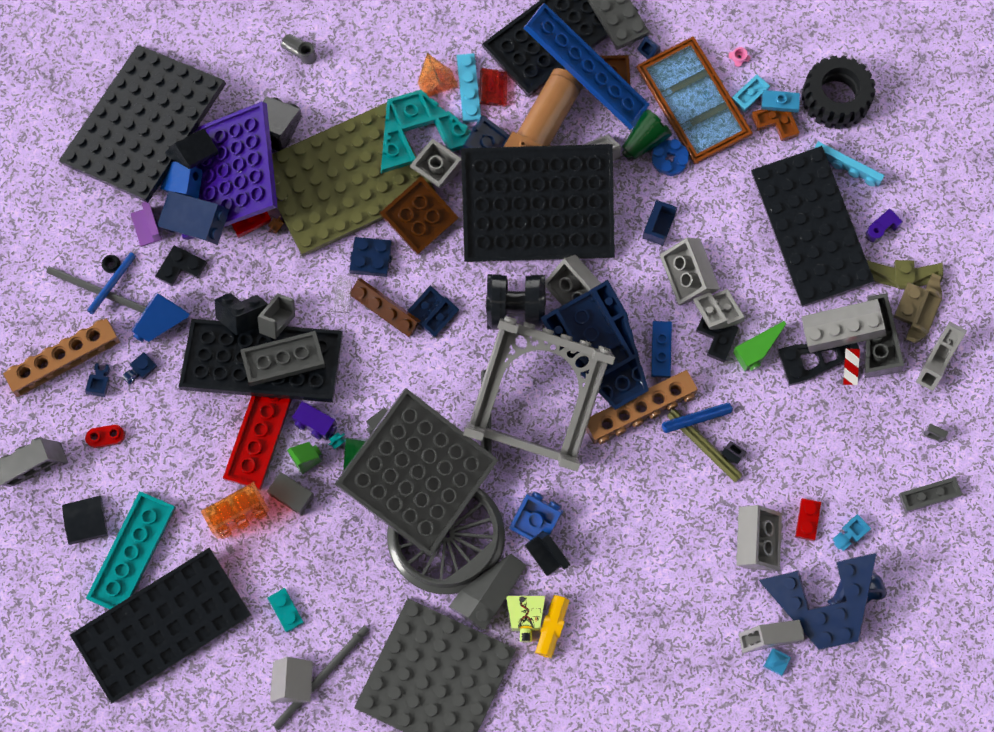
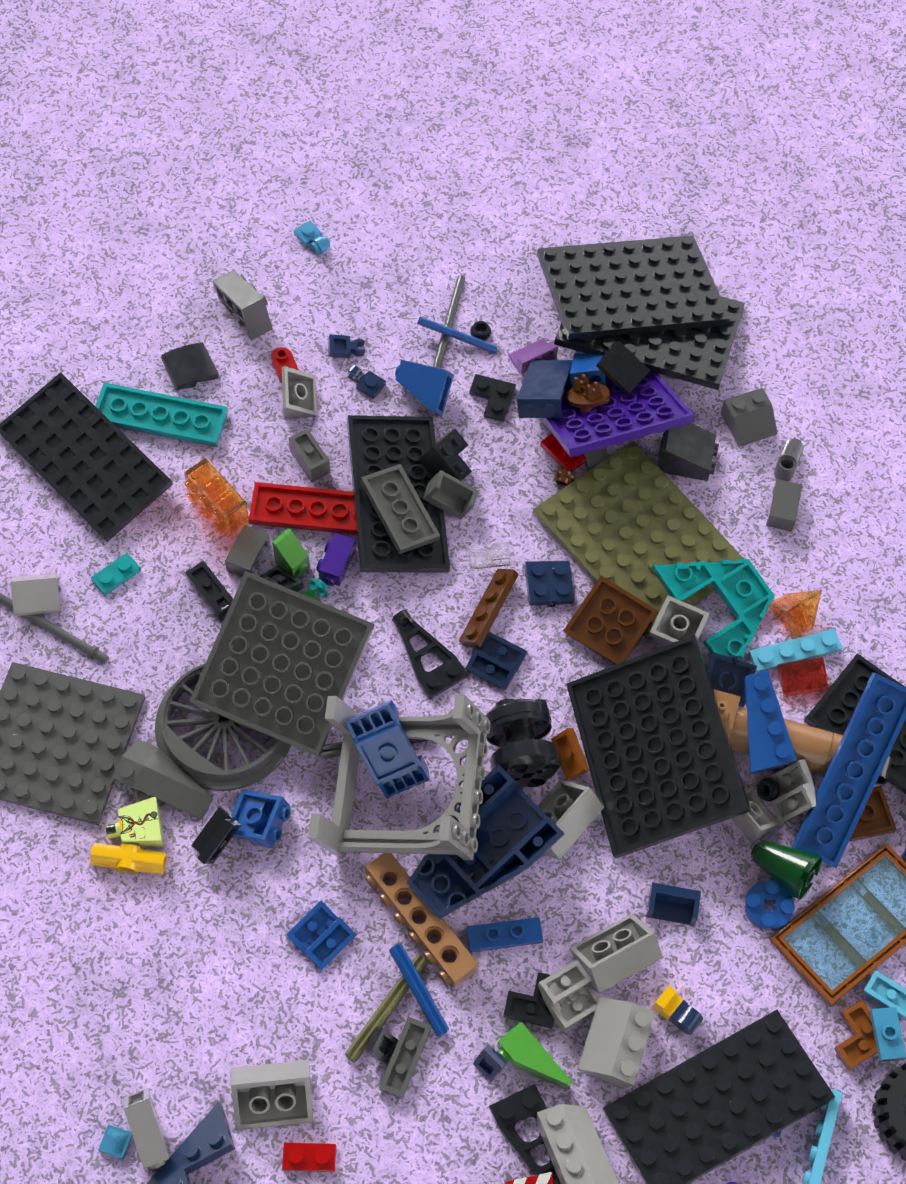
camera: 75 degrees right, 10 degrees down
(56, 366) = (364, 308): medium nougat brick -> none
(103, 128) = (632, 287): none -> black plate
(141, 427) = (299, 393): none -> light grey slope
(206, 427) = (309, 455): none -> dark grey panel
(211, 177) = (587, 395): none -> reddish brown plate
(252, 68) = (749, 417): none -> dark grey slope
(320, 529) = (210, 589): none -> black plate
(327, 468) = (284, 578): none -> black plate
(341, 60) = (784, 505): none -> dark grey panel
(437, 354) = (443, 676): none -> black plate
(504, 403) = (387, 750): none -> blue plate
(519, 270) = (570, 754): none -> dark orange plate
(541, 118) = (767, 733): none -> blue wing
(583, 138) = (763, 789): none -> black plate
(589, 116) = (796, 791): none -> light grey slope
(639, 485) = (320, 935): none -> blue slope
(739, 239) = (678, 1011): none -> leg
(745, 437) = (405, 1058): none -> dark grey plate
(758, 284) = (616, 1042): none -> light grey slope
(759, 377) = (489, 1063): none -> dark blue plate

